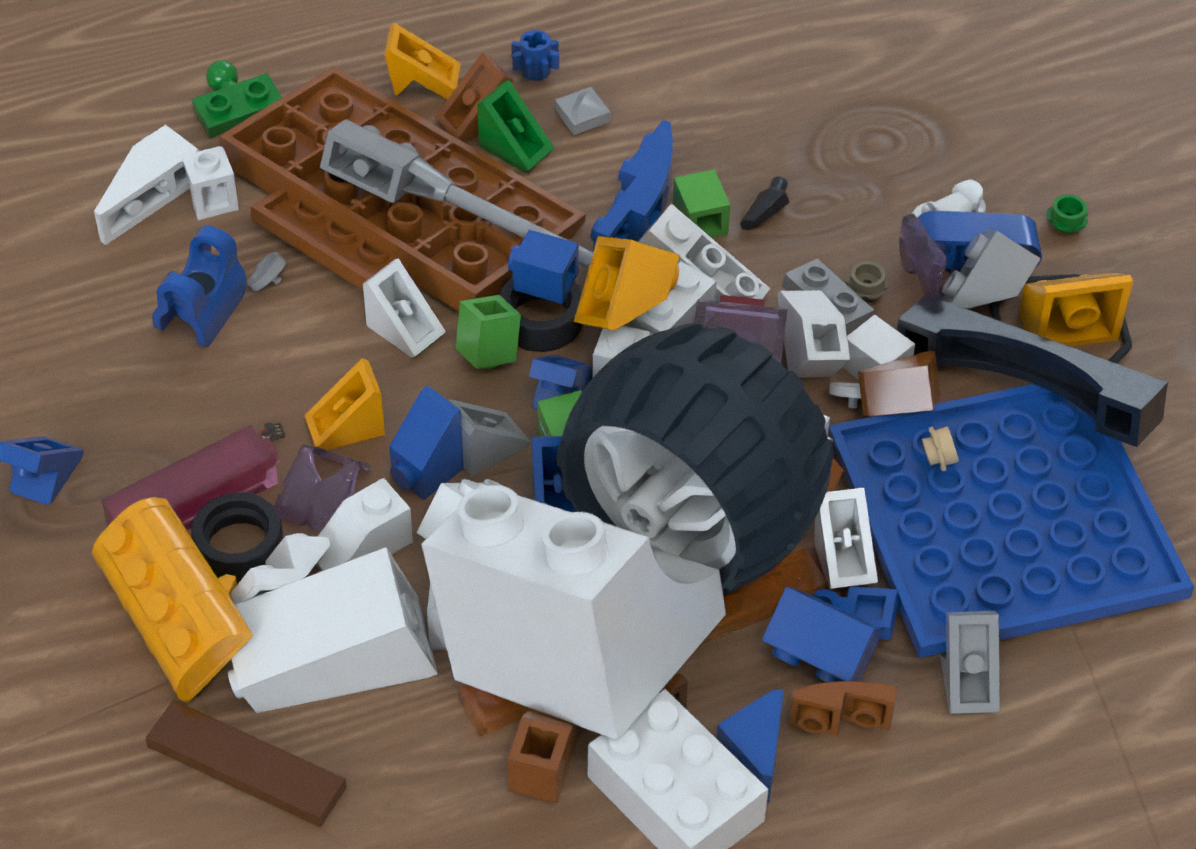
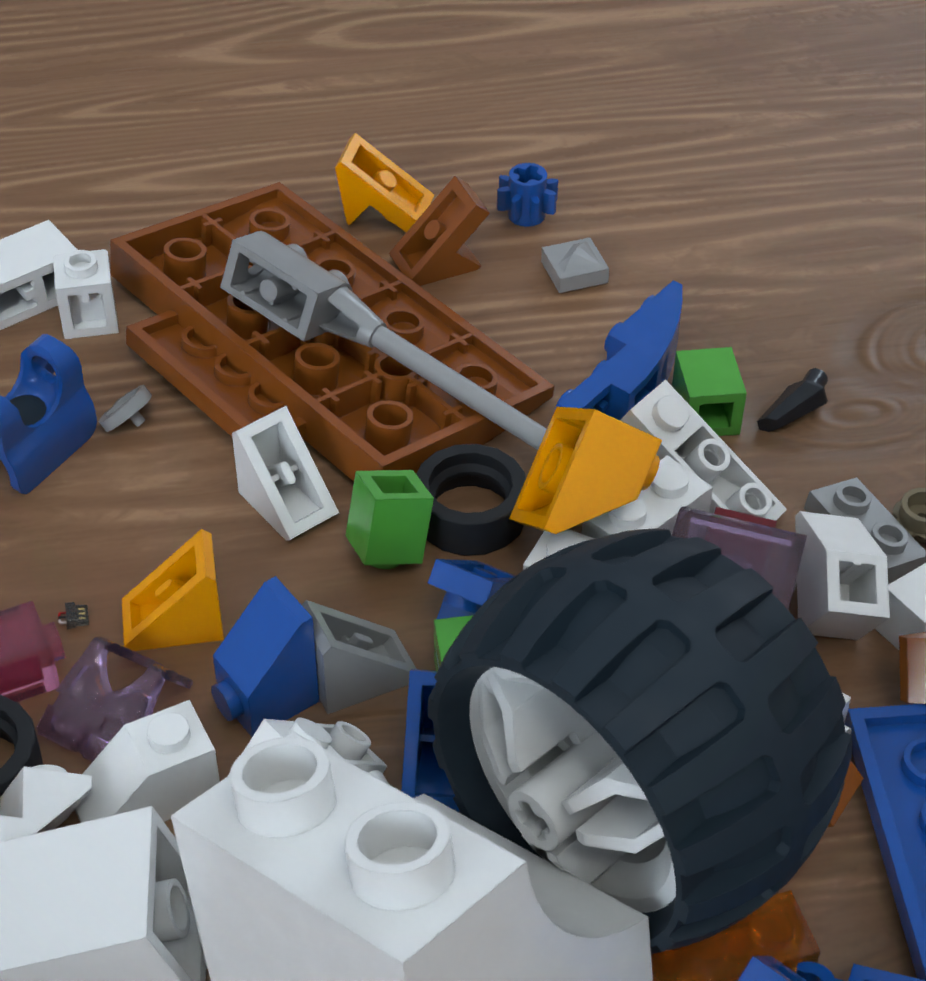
camera: 10 degrees right, 5 degrees down
(230, 100) = (146, 200): green plate -> none
(510, 129) = (477, 273): green slope -> none
(544, 266) = (480, 439): blue brick -> none
(845, 539) = (855, 889): white slope -> none
(846, 389) = (880, 661): white piece -> none

